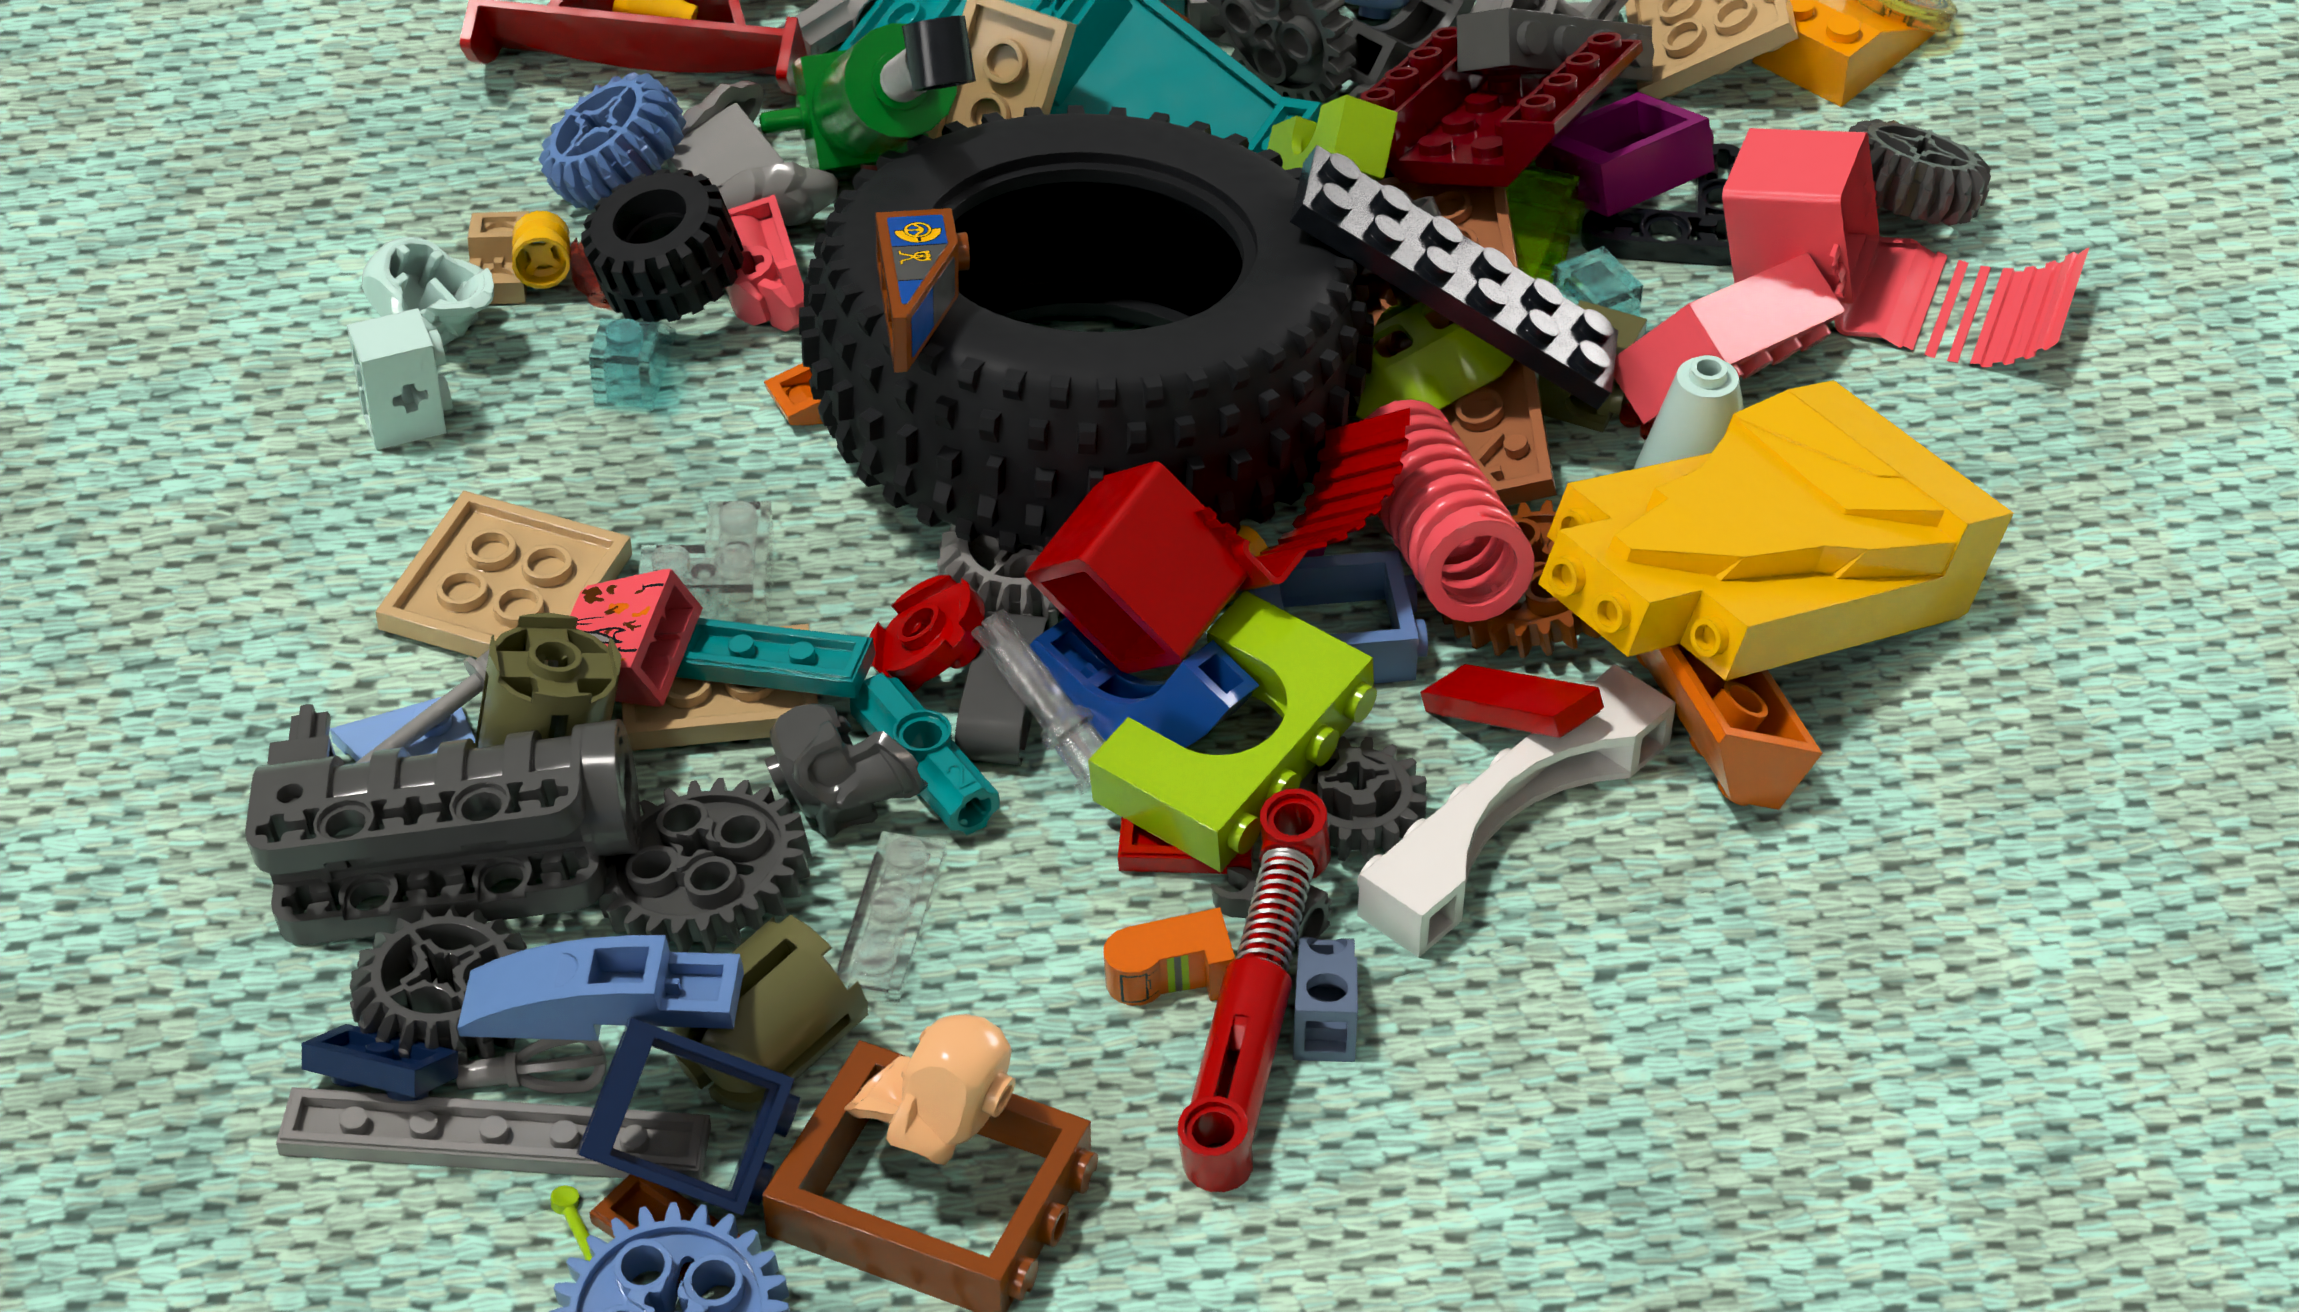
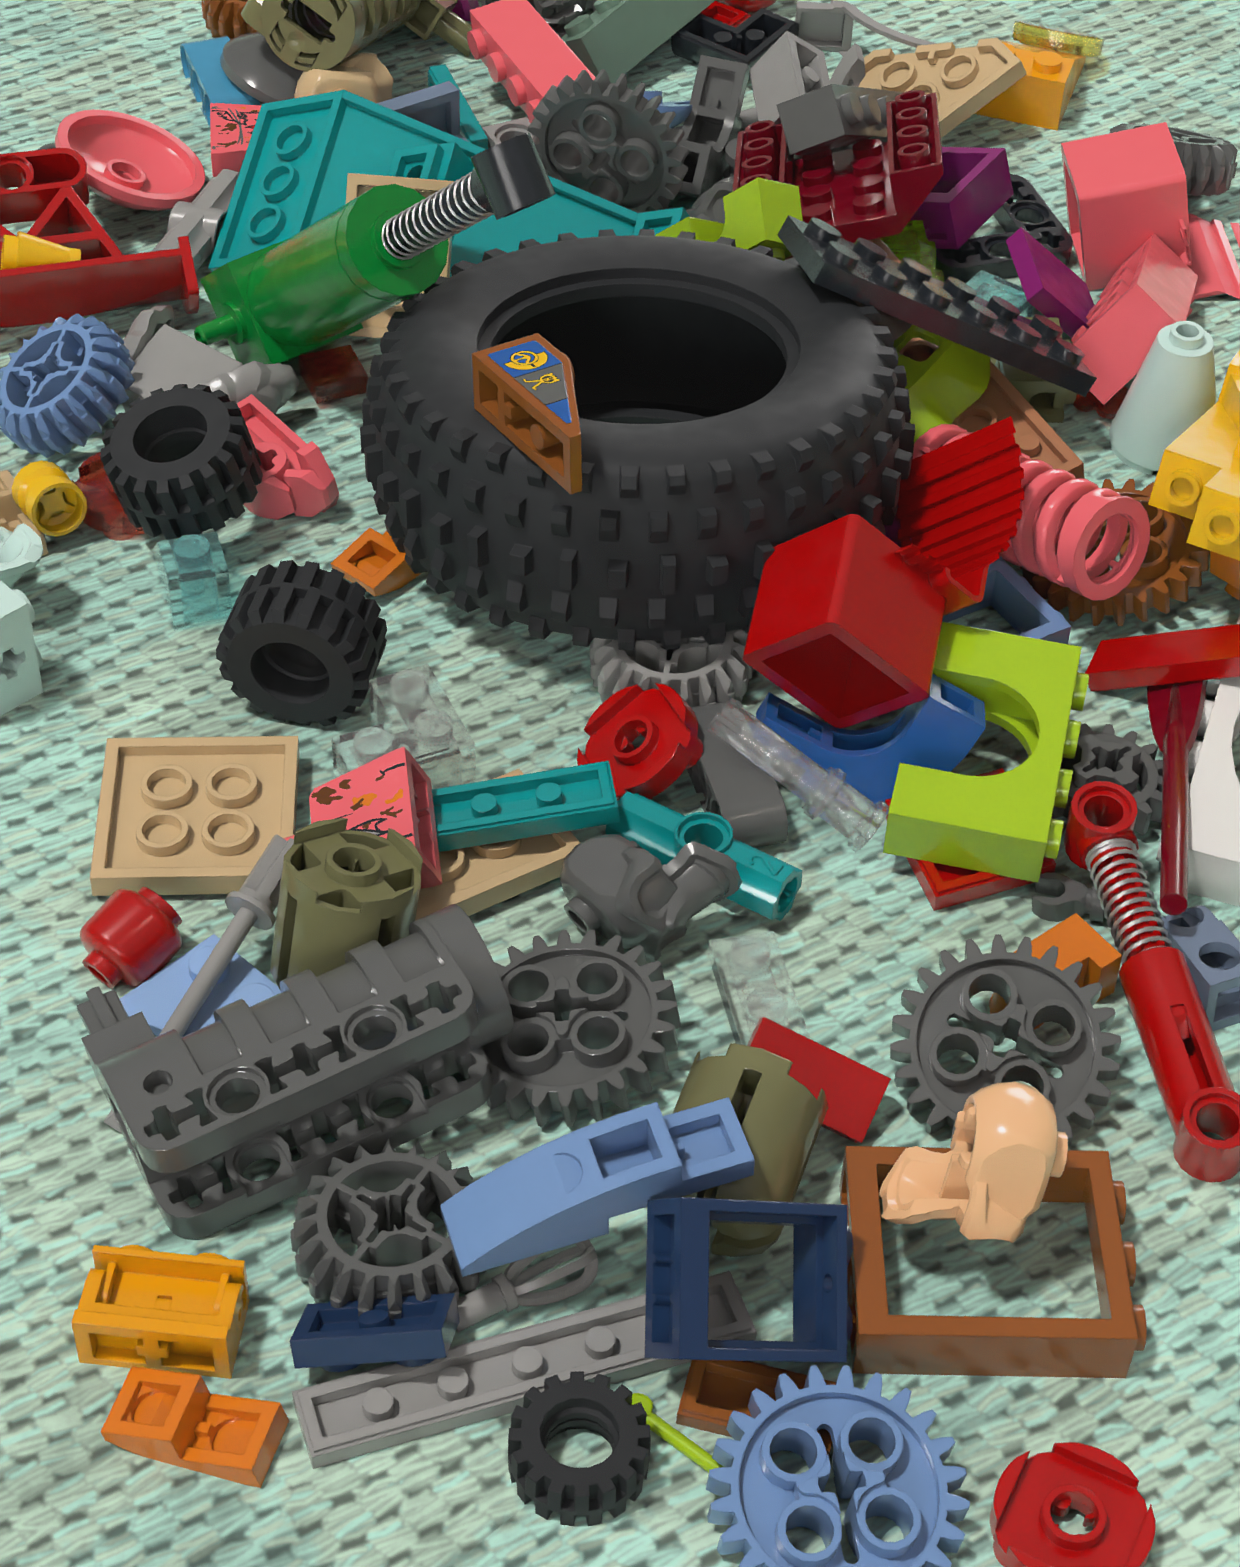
camera: 25 degrees left, 0 degrees up
(202, 1090) = (185, 1425): none -> orange slope
(224, 989) = (162, 1311): none -> light orange hinge
(379, 673) = (130, 937): none -> red head
(497, 1241) = (586, 1489): none -> black tyre
(668, 449) = (302, 643): none -> black tyre
(897, 991) = (849, 1087): none -> red tile
(1117, 964) = (1033, 995): none -> dark grey gear
(1464, 759) = (1175, 721): none -> dark red piece
(1664, 272) = (1050, 283): none -> magenta tile

